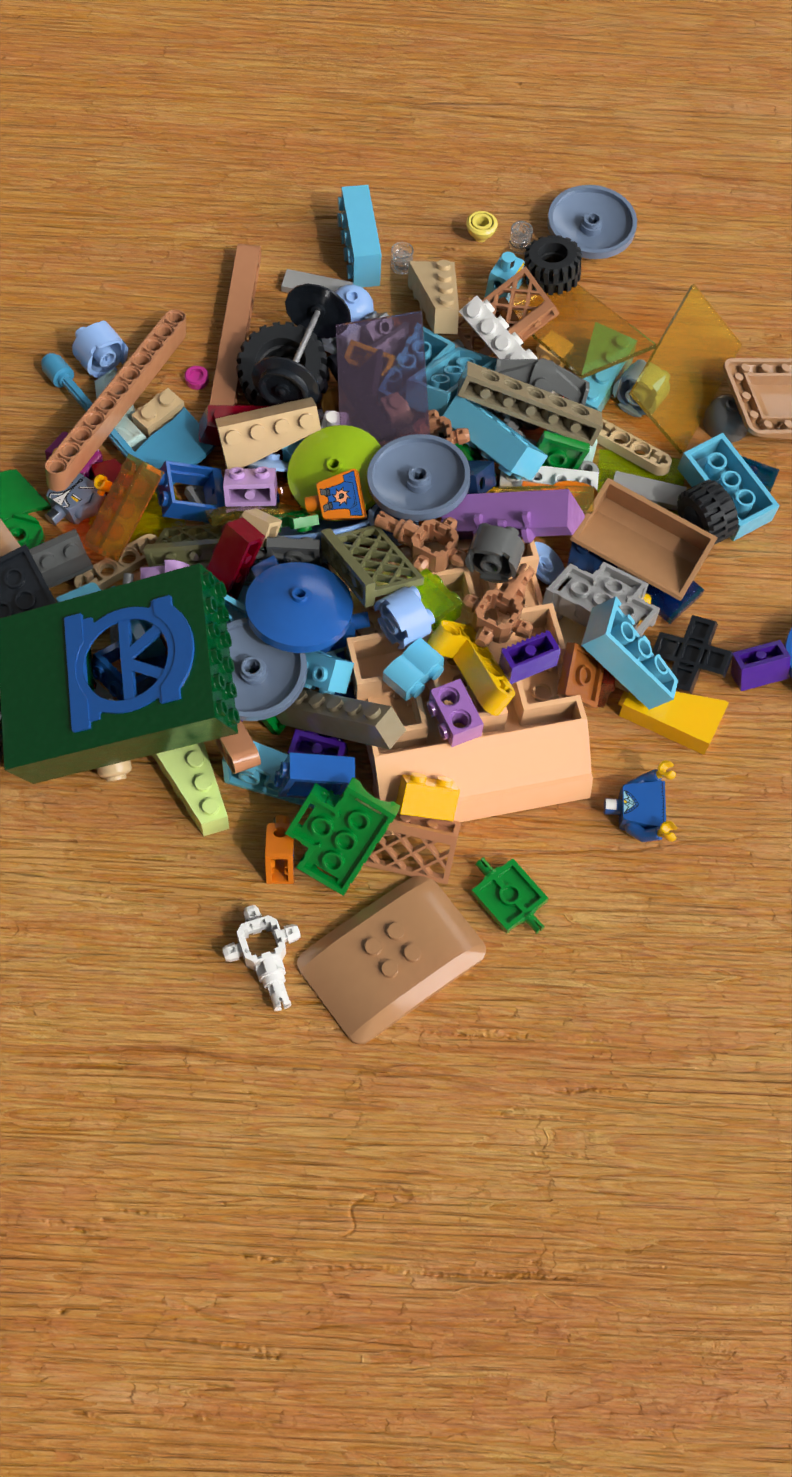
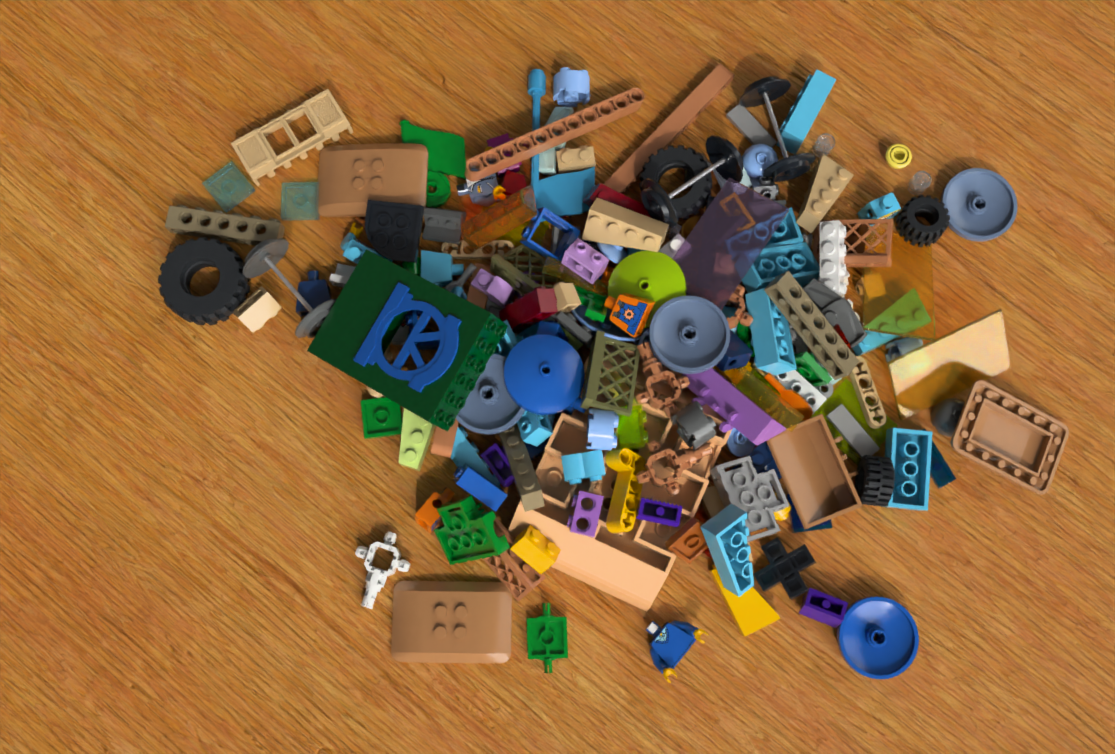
camera: 40 degrees right, 15 degrees up
(142, 798) = (381, 418): none -> green plate
(196, 377) = (622, 146): dark pink tile -> none
(306, 239) = (761, 93): none -> black axle

